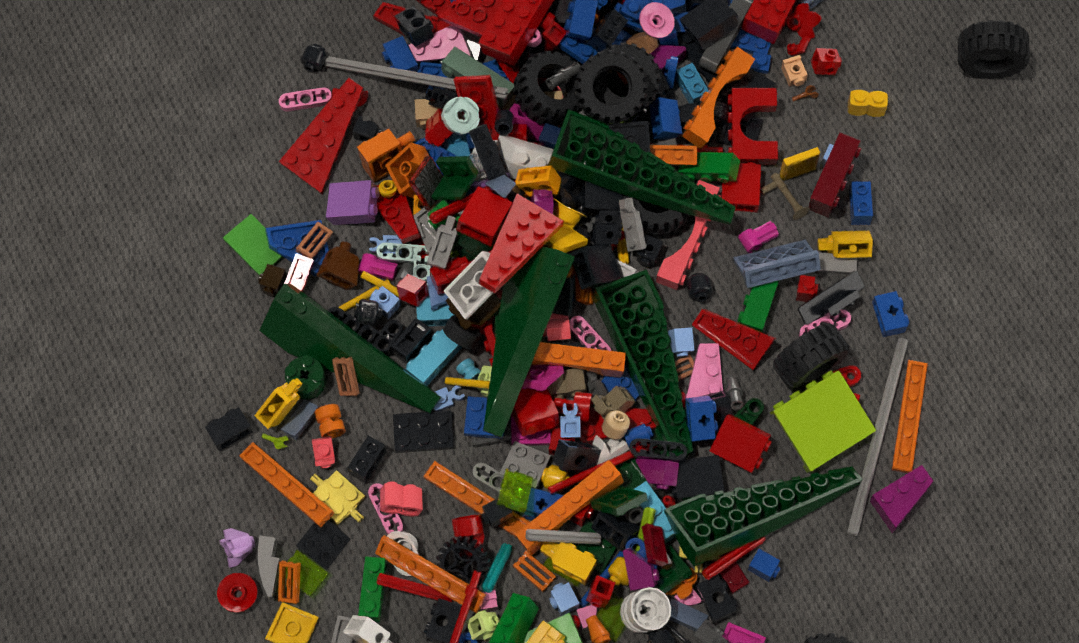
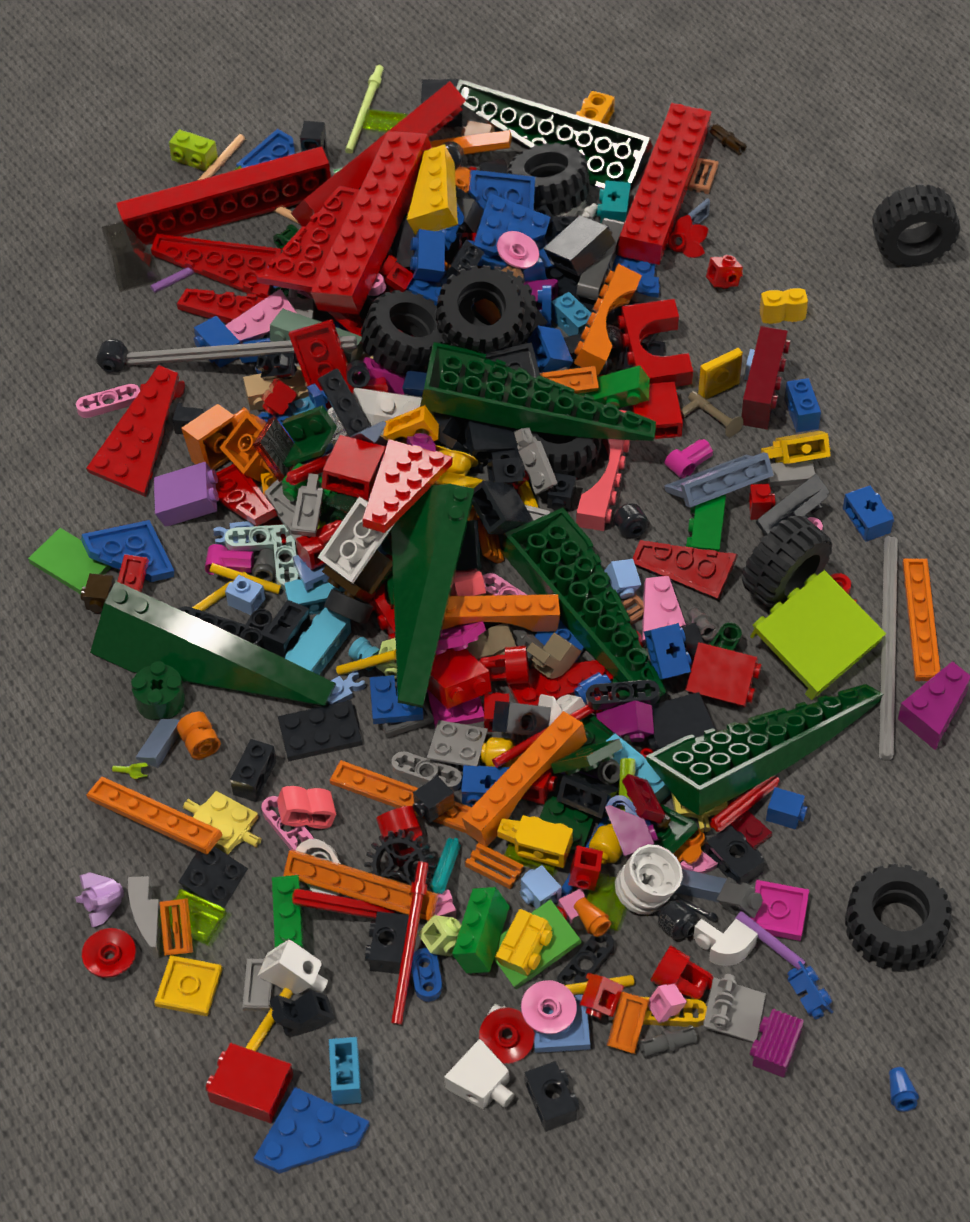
camera: 10 degrees left, 15 degrees down
(228, 428) = (68, 765): black brick -> none
(279, 404) = (130, 721): yellow hinge -> none
(305, 252) = (137, 536): nougat tile -> none
(323, 452) = (195, 771): coral bracket -> none
(340, 267) = (182, 564): reddish brown torso -> none
(348, 376) = (214, 679): nougat tile -> none
(367, 312) = (225, 603): black head -> none
(387, 188) = (227, 472): yellow plate -> none
(412, 290) = (278, 571): red brick -> none
(414, 25) = (229, 301): black brick -> none
(451, 118) = (292, 377): light aqua plate -> none
(515, 490) = (451, 768): clear neon green plate -> none
(562, 536) = (520, 809): light grey axle -> none
(563, 76) = (419, 312): dark grey pin -> none
(570, 423) = (505, 684): light blue plate -> none
(615, 424) = (563, 676): tan head -> none
(789, 69) = (689, 287): light nougat brick -> none
(800, 48) = (690, 267): red arm -> none
(808, 90) = (712, 305): dark orange hand -> none

